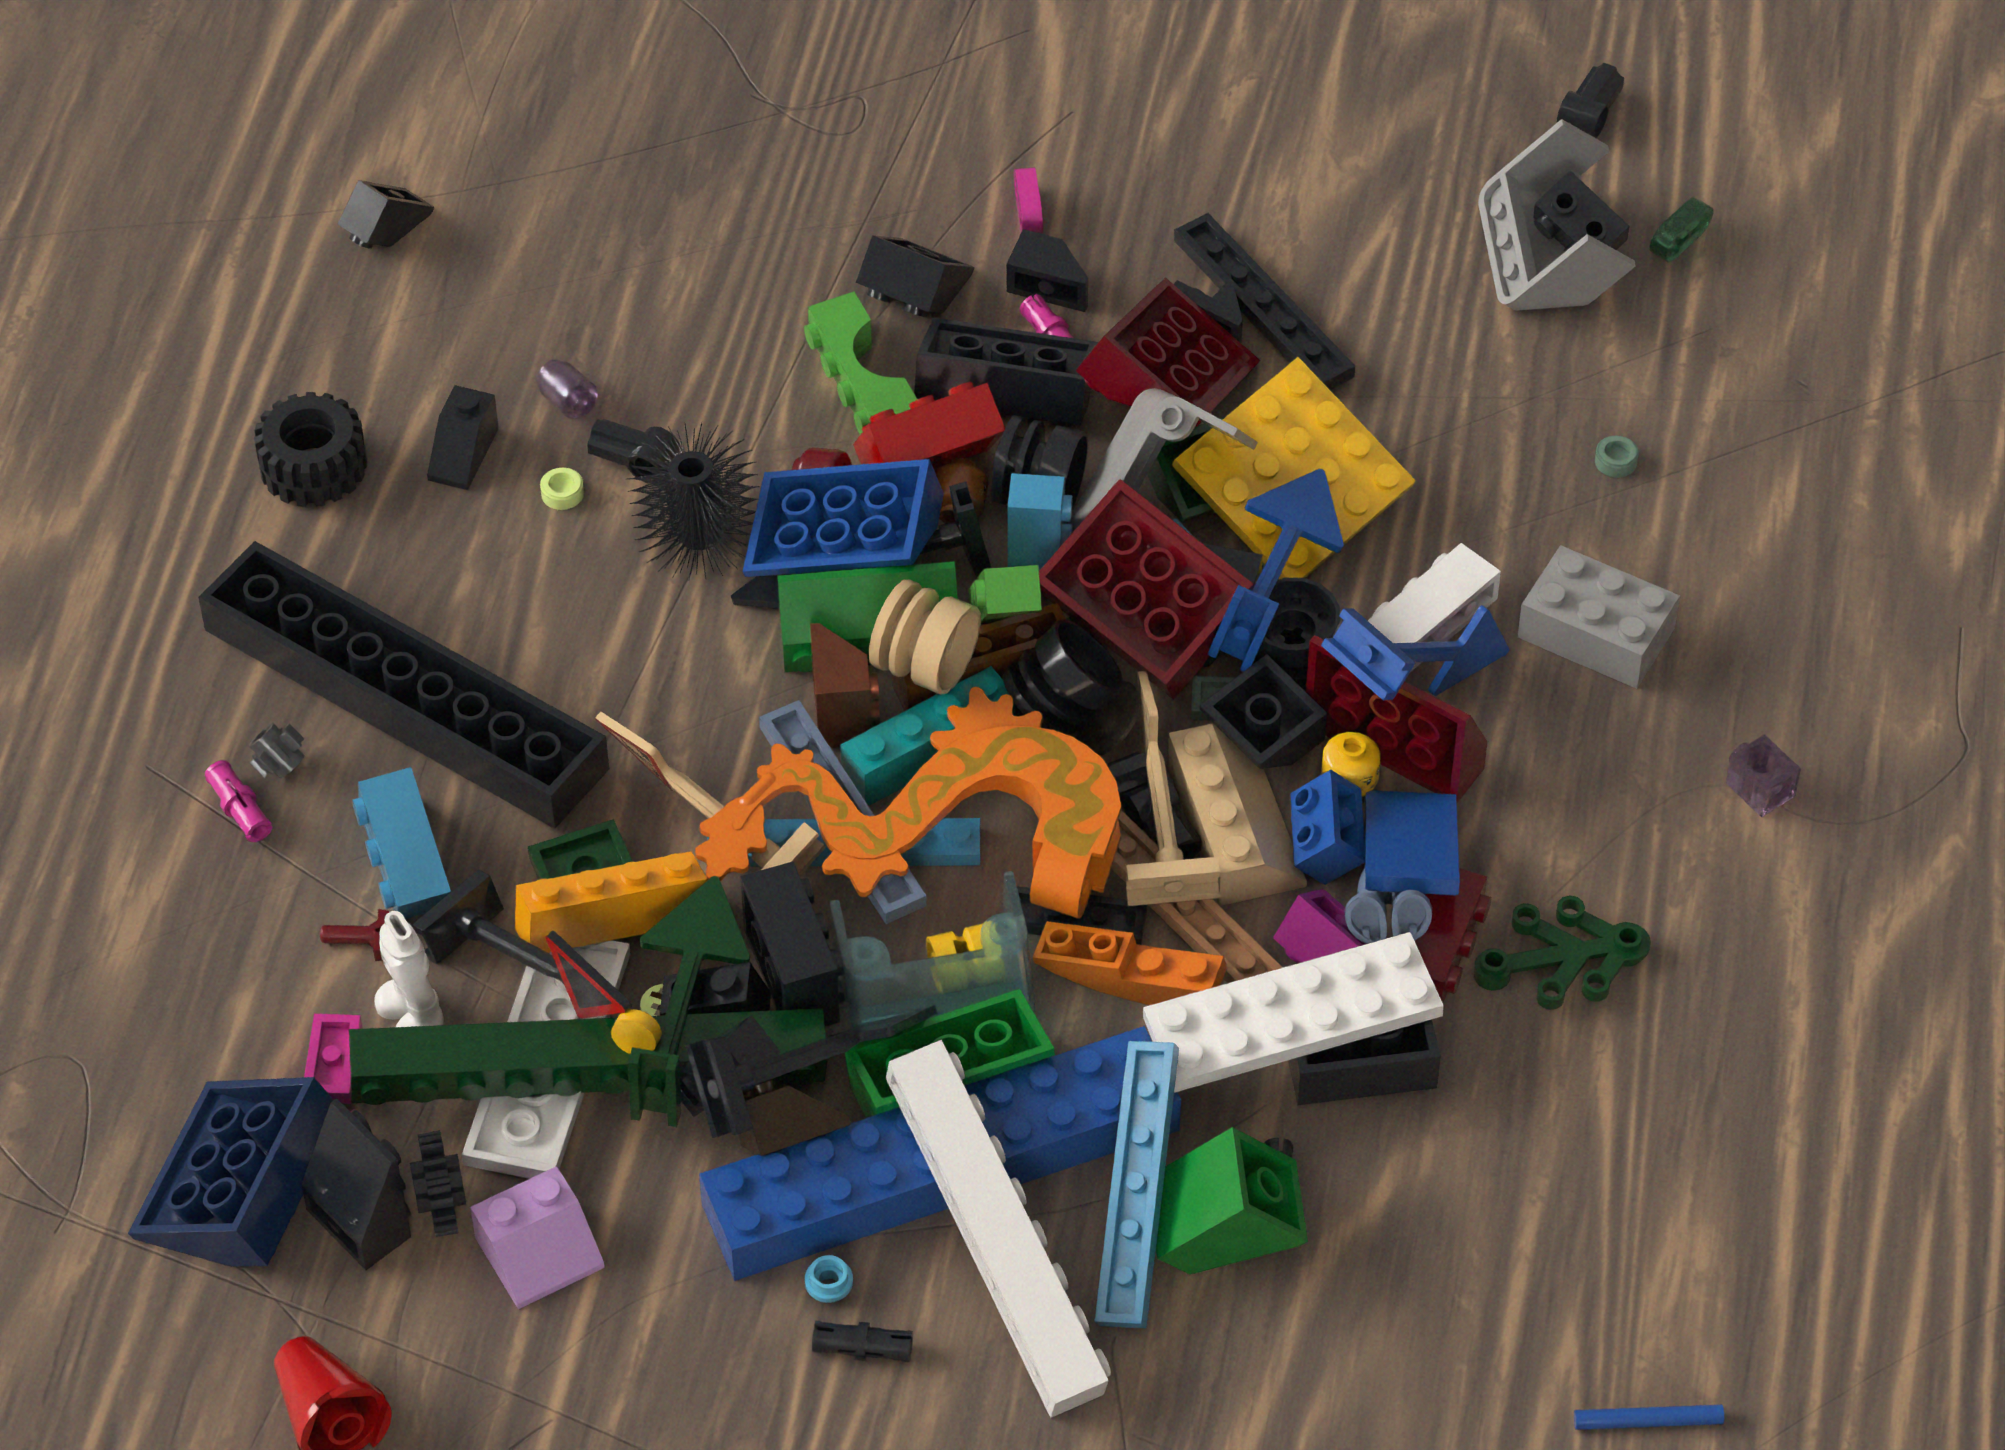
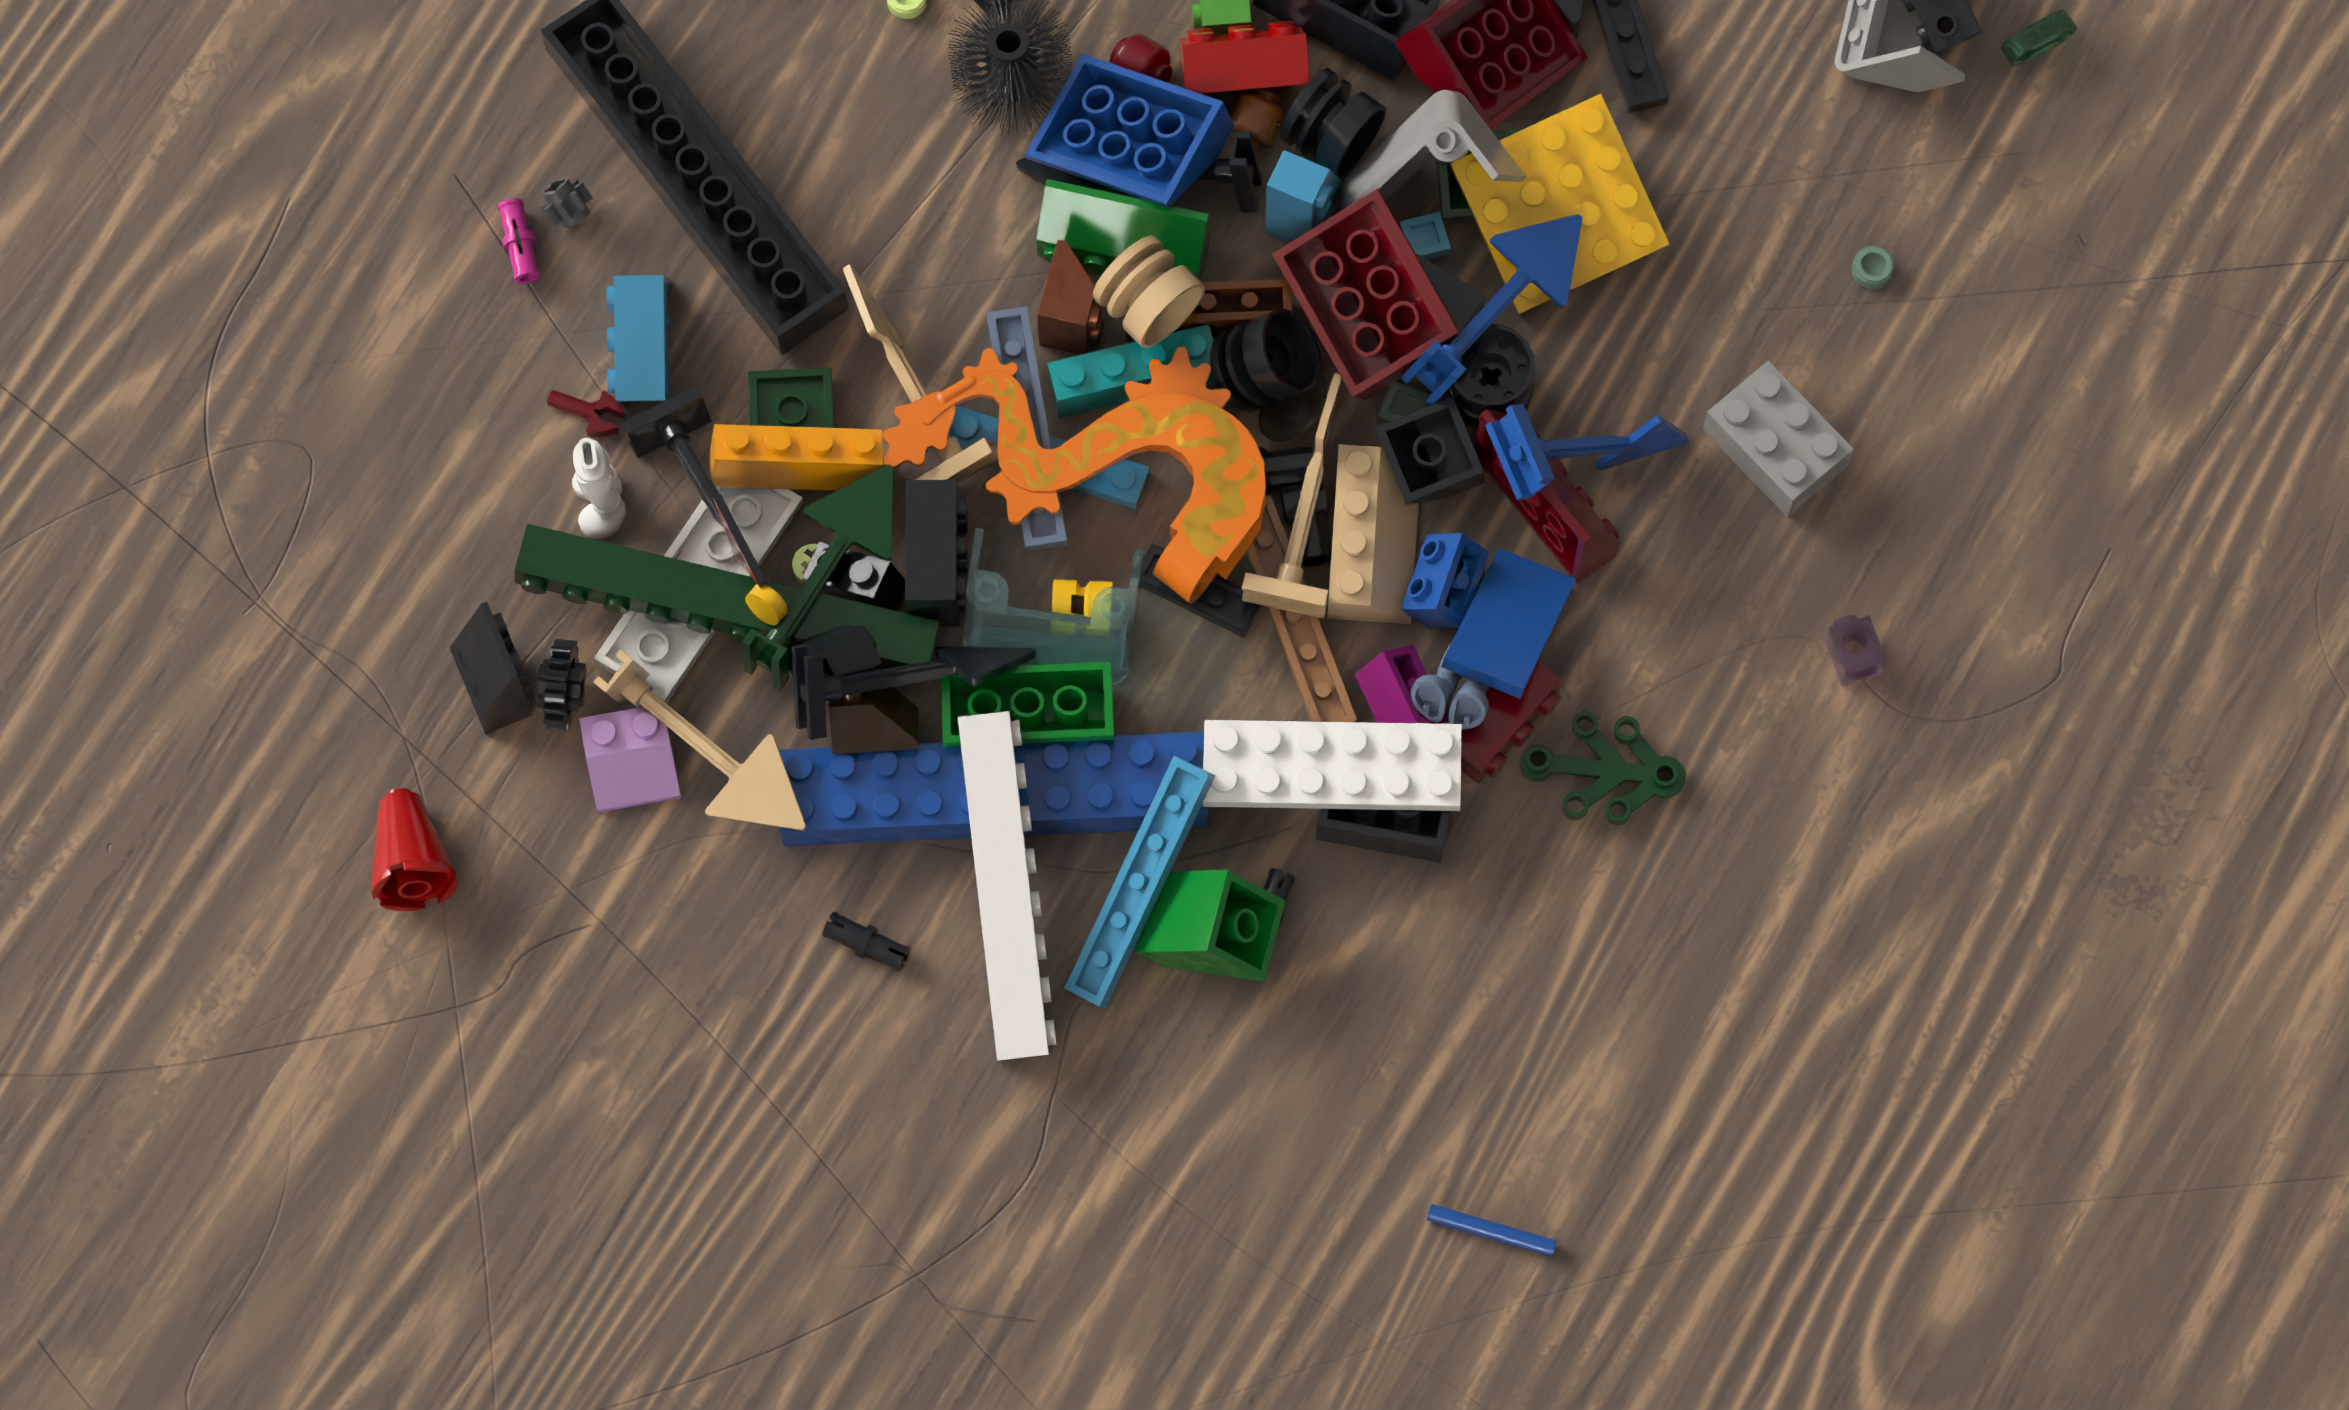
camera: 20 degrees right, 20 degrees up
(235, 1171) = (405, 609): dark blue slope -> none
(330, 1053) = (522, 507): dark pink plate -> none
(691, 1213) = (756, 790): none -> tan piece
(828, 1268) = (859, 862): medium azure plate -> none
(1006, 592) = (1240, 263): bright green arch -> none
(1120, 967) = (1219, 659): orange slope -> none
(1354, 758) = (1492, 521): yellow head -> none
(1439, 600) = (1619, 386): white brick -> none

